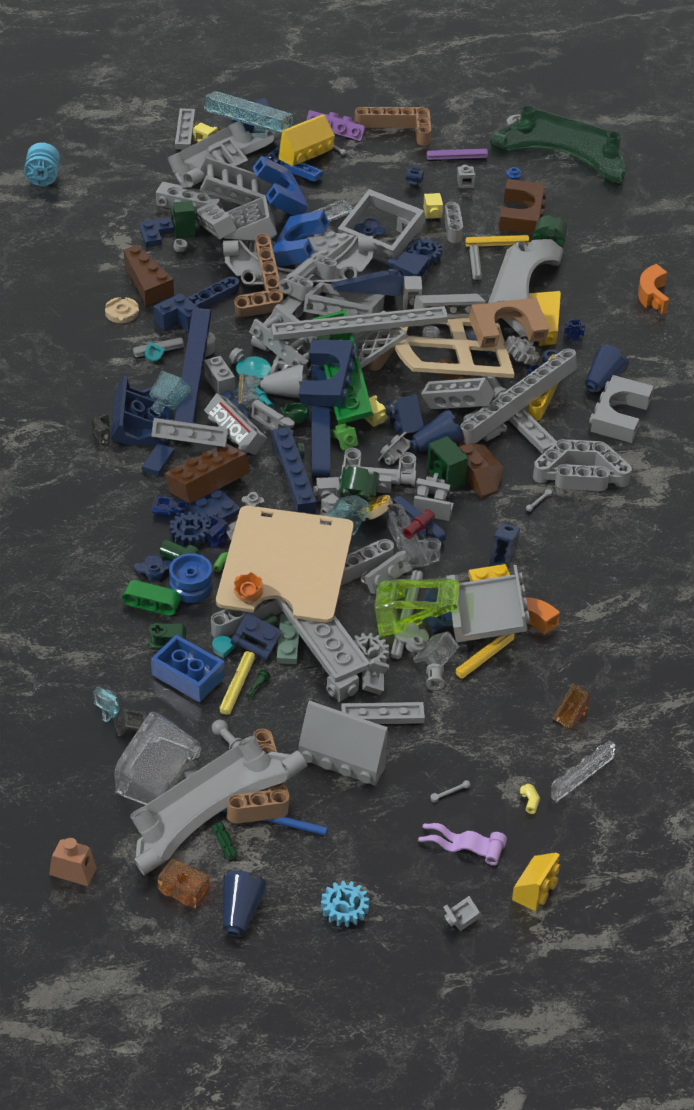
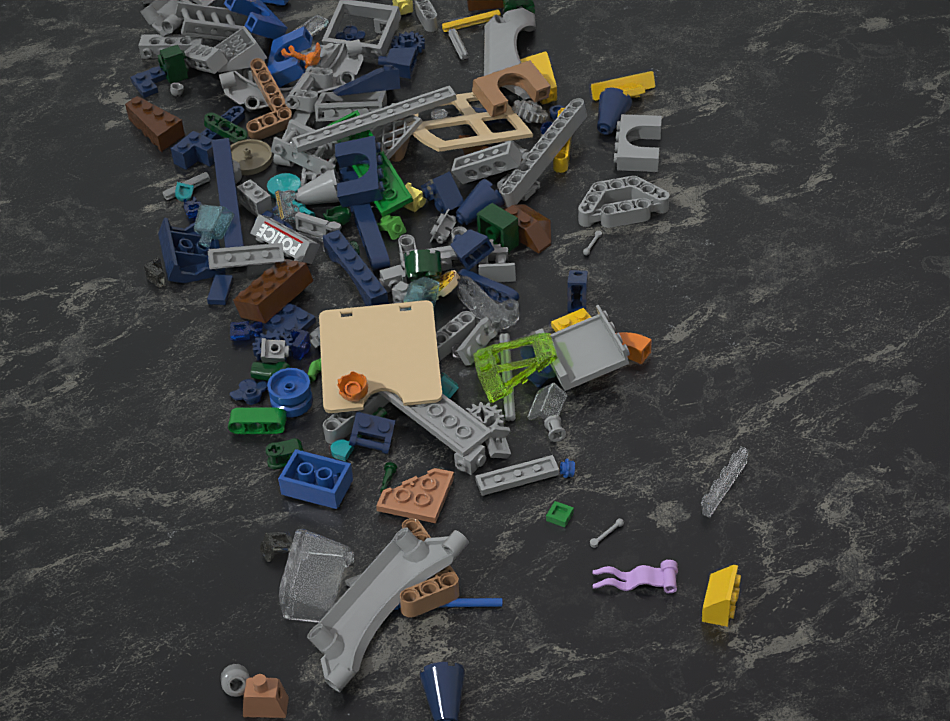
camera: 10 degrees left, 0 degrees up
(42, 164) = (20, 43): medium azure wheel -> none
(49, 837) = (234, 679): none -> light grey head
(107, 701) = (247, 531): clear light blue bracket -> none
(121, 310) = (139, 160): tan tile -> none
(155, 369) = (191, 207): none -> clear blue plate
(181, 537) = (270, 356): none -> light grey brick
(183, 883) = (381, 689): clear orange brick -> none
(215, 304) = (218, 122): none -> dark green beam
(220, 728) = (365, 529): light grey pin -> none
(225, 841) = (407, 637): dark green axle -> none
(230, 331) = (252, 155): none -> dark tan piece
(236, 355) = (264, 176): light grey plate -> none
(237, 683) = (367, 481): light yellow axle -> none
(252, 500) = (324, 304): light grey plate -> none
(279, 710) = (418, 497): none -> nougat plate
(287, 642) = (402, 430): sand green plate -> none
(318, 245) = (311, 58): none -> orange piece
(343, 743) = (493, 512): light grey slope -> none
(344, 609) = (448, 385): none -> teal panel
(344, 904) = (545, 667): medium azure gear -> none
(411, 288) = (411, 82): light grey brick -> none
(411, 761) = (559, 514): none -> green tile
(412, 477) = (471, 248): none -> dark blue torso
(413, 638) = (522, 397): light grey plate -> none
(418, 524) = (491, 289): dark red pin -> none
(433, 719) = (567, 468): none -> blue plate
(455, 304) = (460, 83): light grey brick -> none
(462, 914) = (661, 647): light grey bracket -> none
(483, 655) = (592, 397): yellow axle -> none
(529, 791) = (687, 518): light yellow arm -> none
(532, 430) = (565, 181): light grey plate -> none
(573, 706) = (694, 423): clear orange slope -> none
(574, 329) = (570, 82): clear blue gear -> none
(631, 346) = (631, 85): none -> yellow bracket
(648, 292) = (623, 31): orange arch -> none

